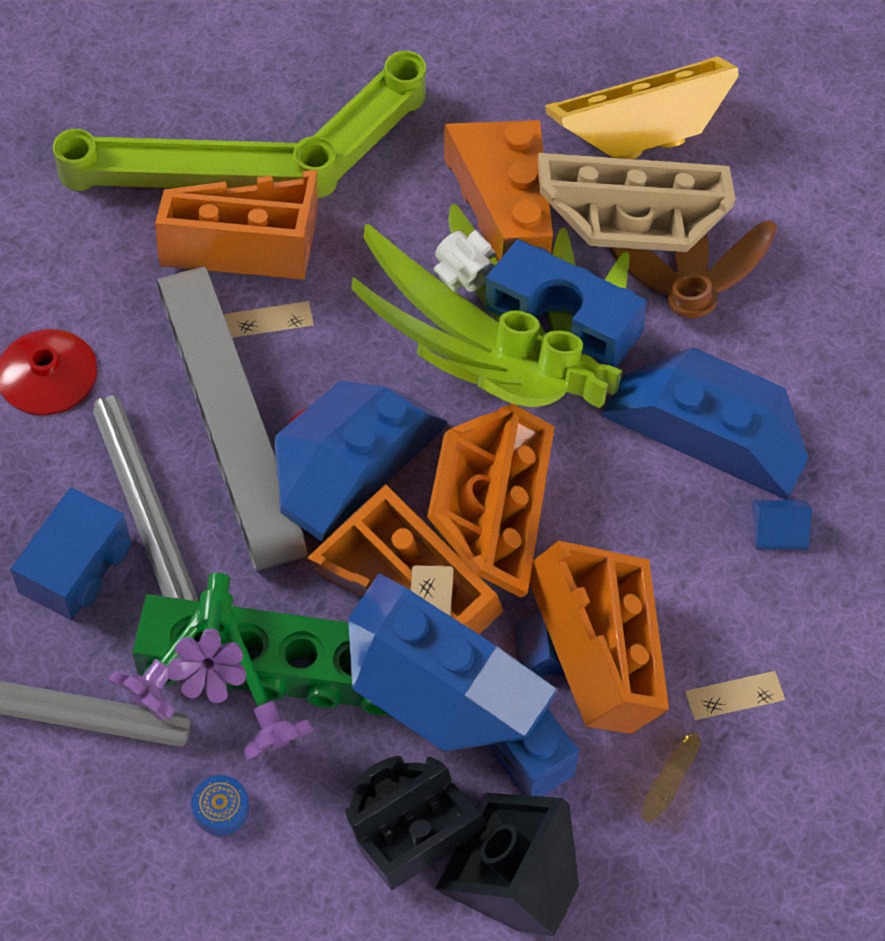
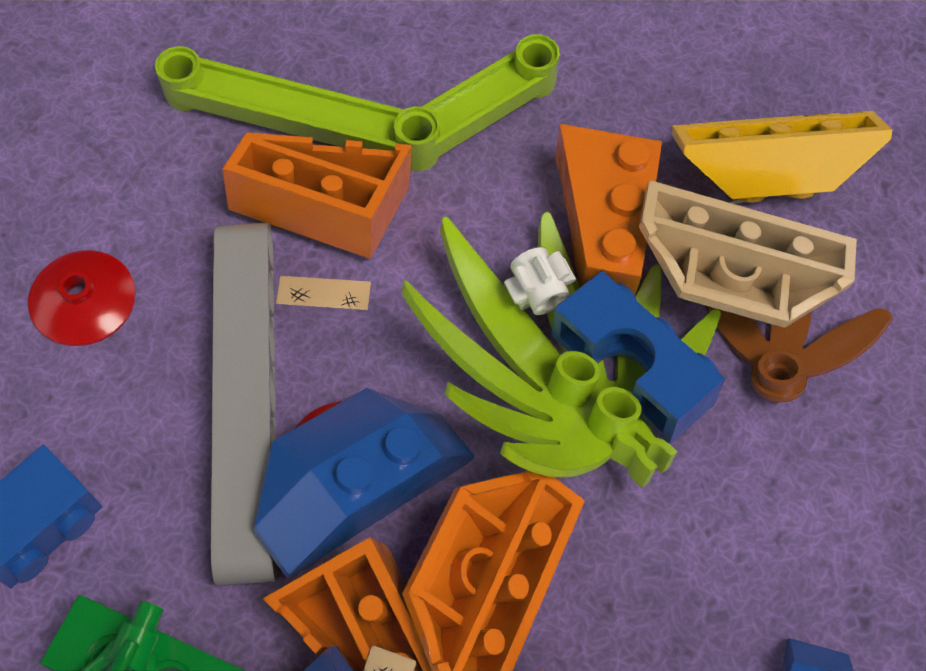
camera: 15 degrees right, 5 degrees up
(143, 500) = (126, 479): light grey axle -> none
(715, 417) = (771, 527): blue wedge -> none

